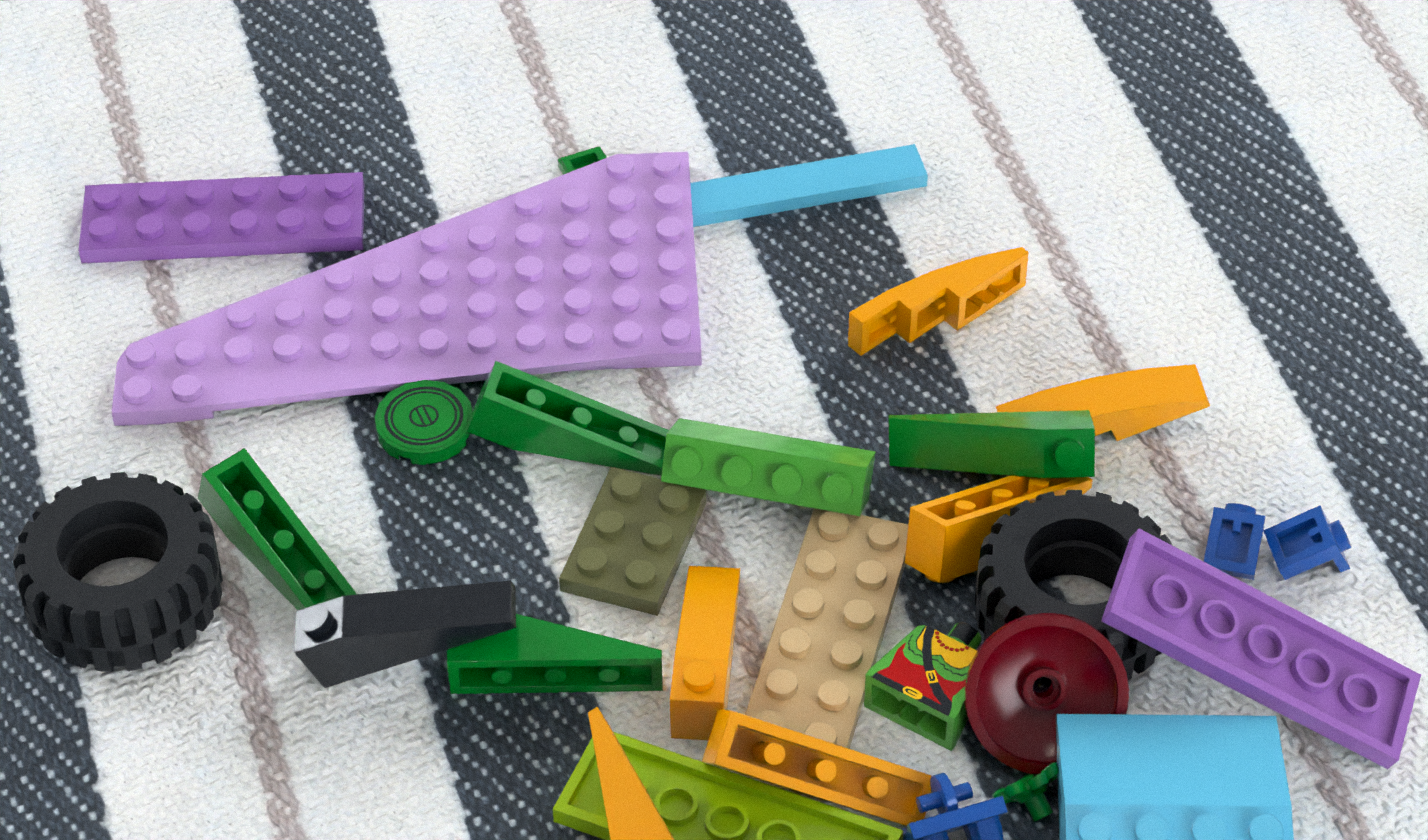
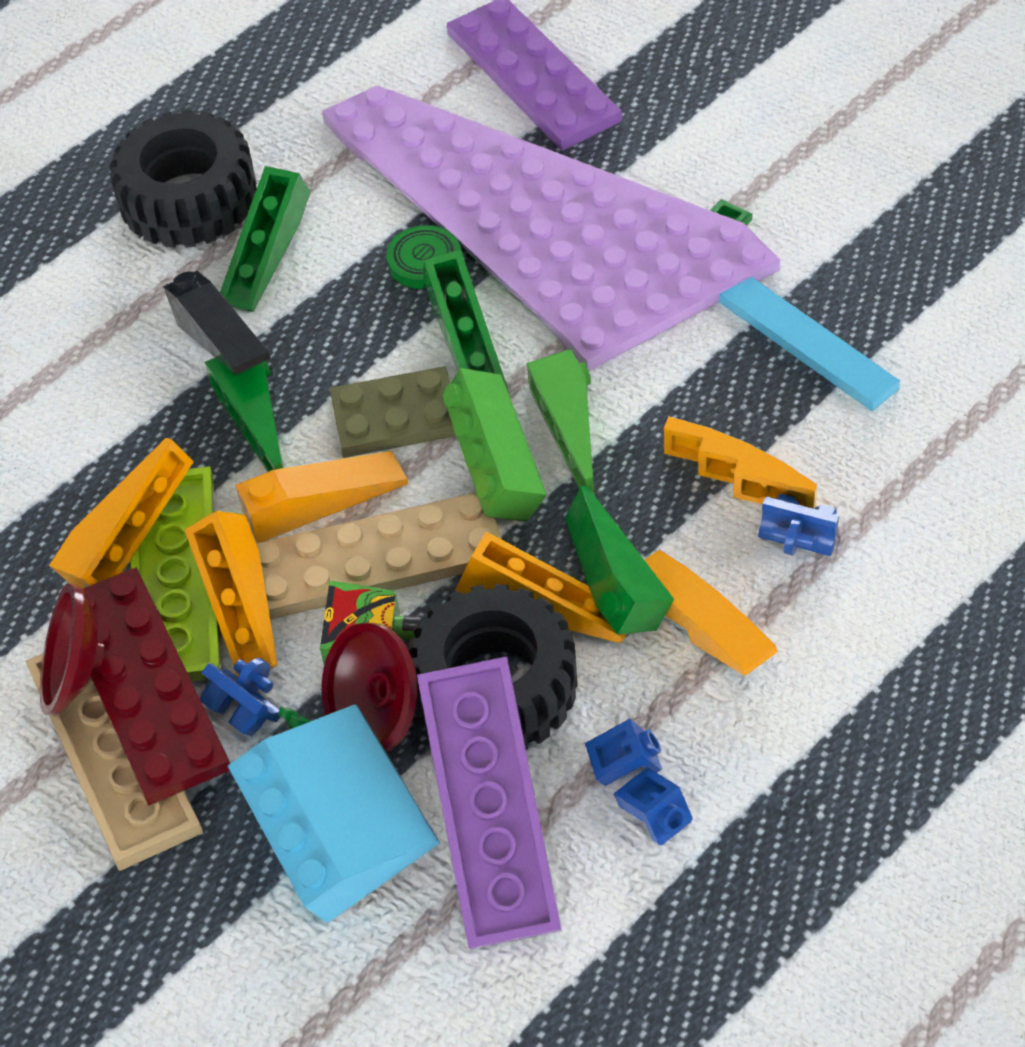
camera: 65 degrees right, 5 degrees up
(760, 394) = (561, 395): none -> bright green slope
(1048, 291) = (798, 525): none -> blue hips

